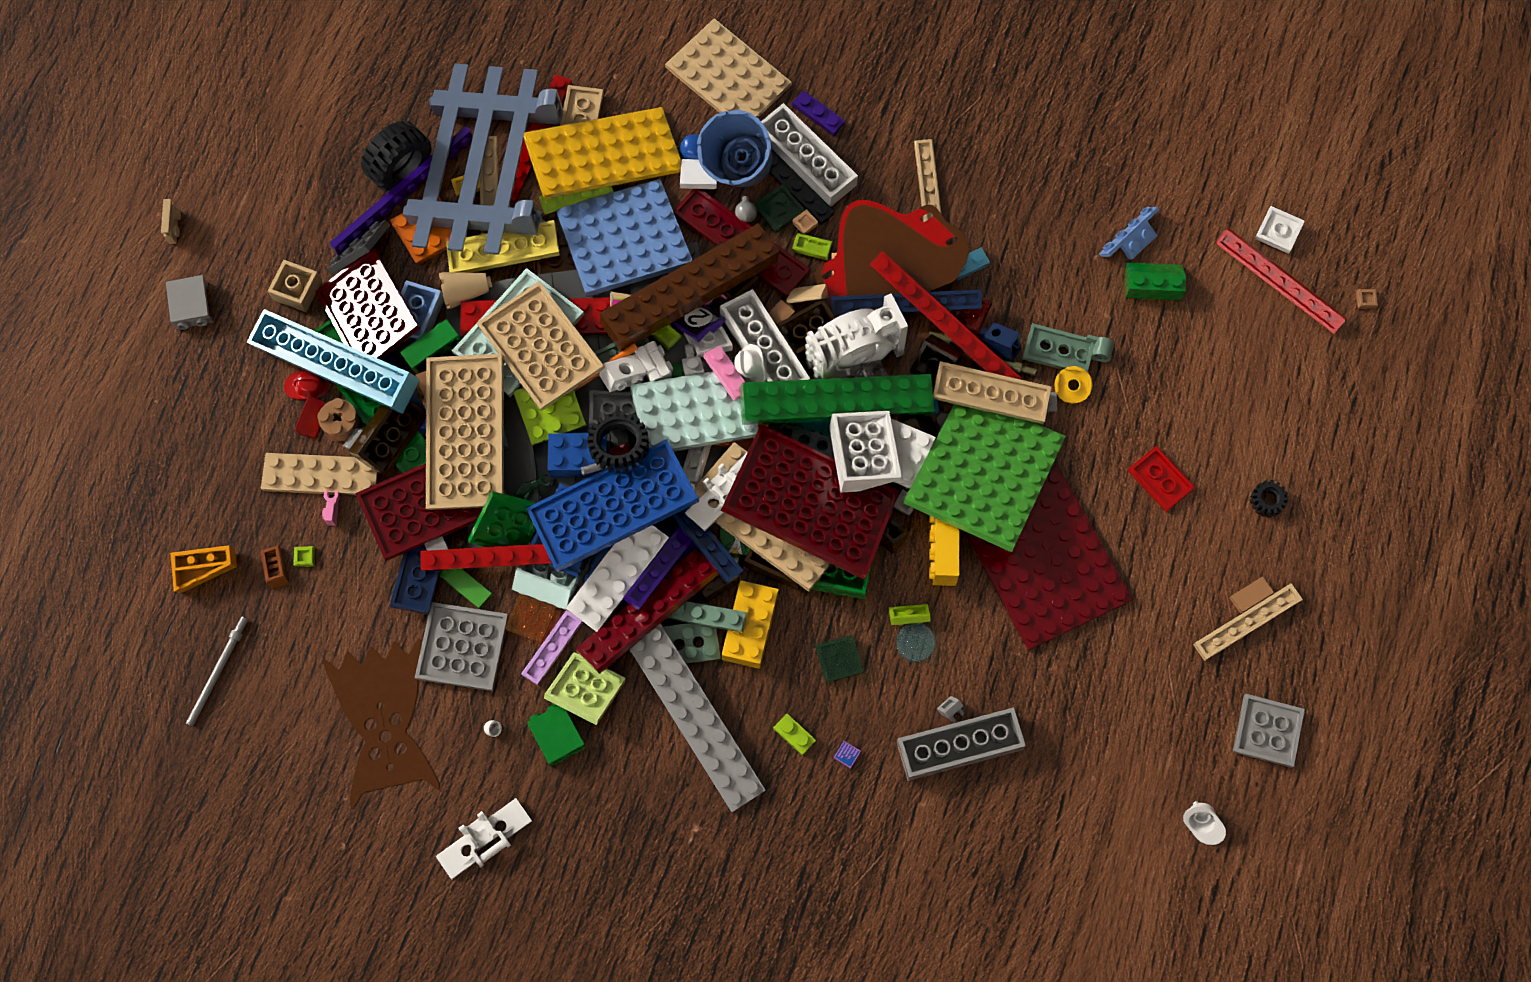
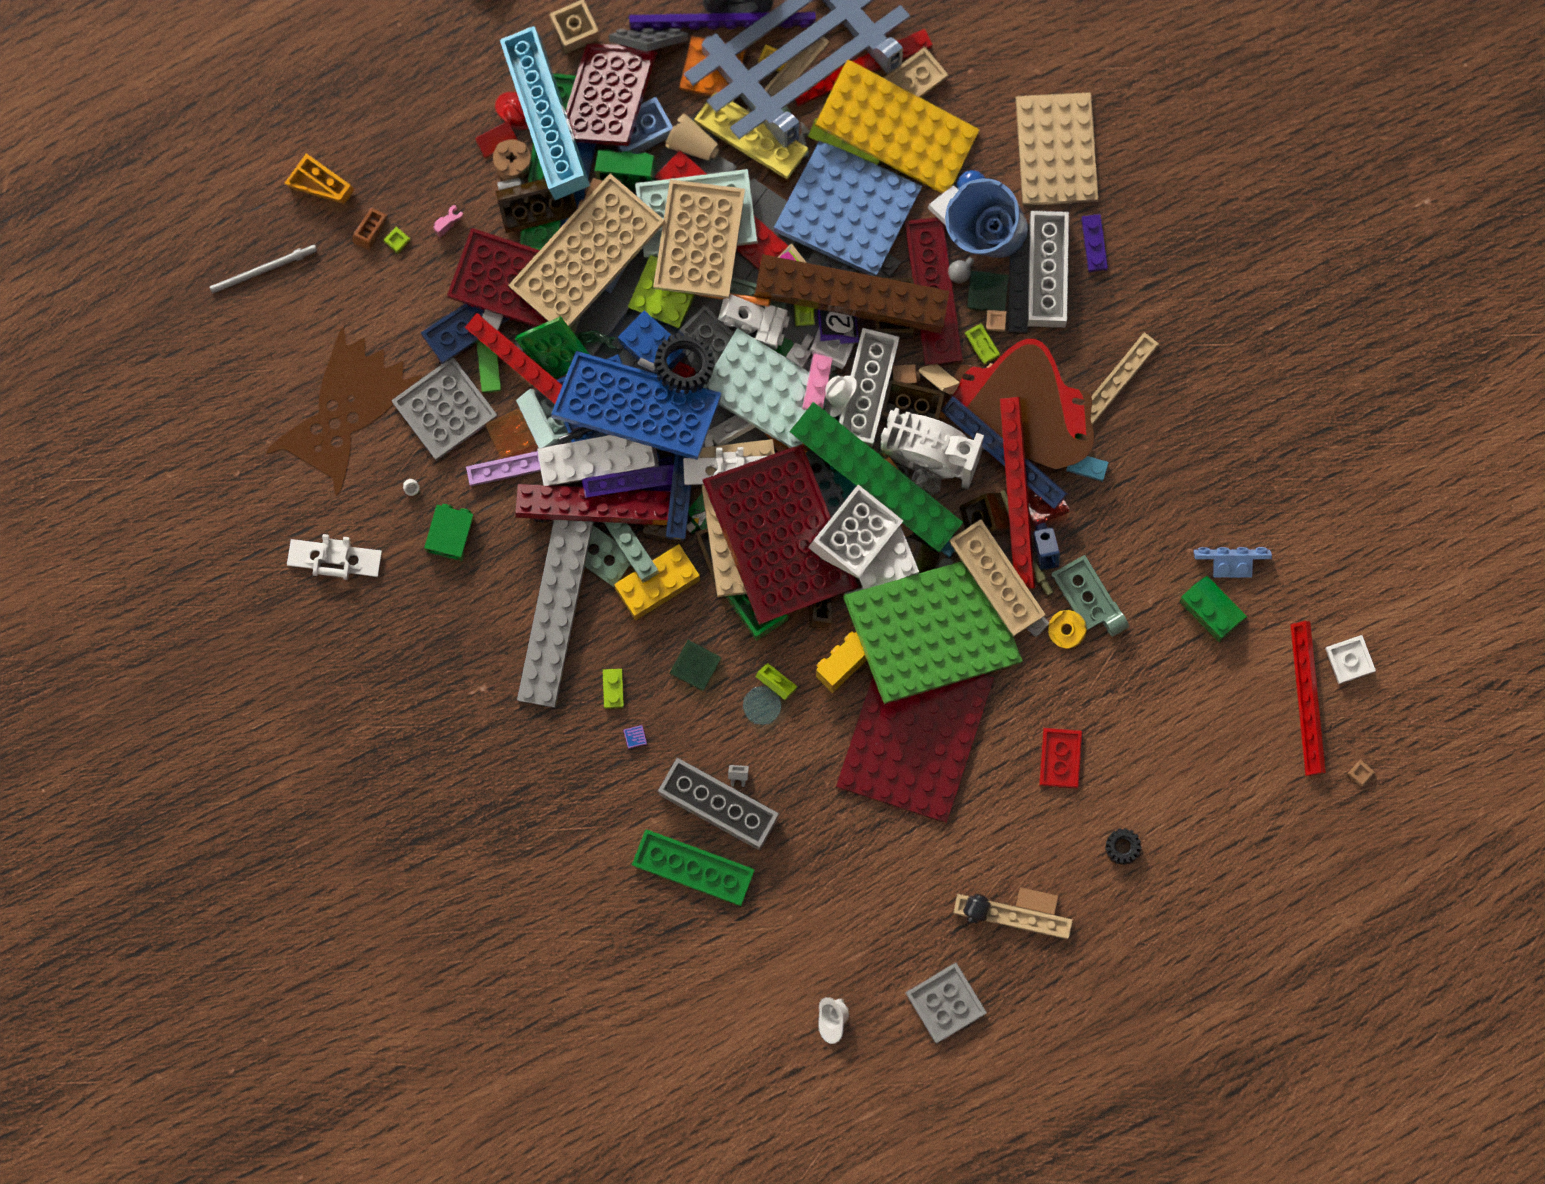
camera: 45 degrees right, 5 degrees up
(316, 474) = (460, 186): tan plate -> none
(583, 689) = (495, 521): yellowish green plate -> none
(988, 810) = (693, 867): none -> green plate
(1222, 638) = (977, 908): none -> black head

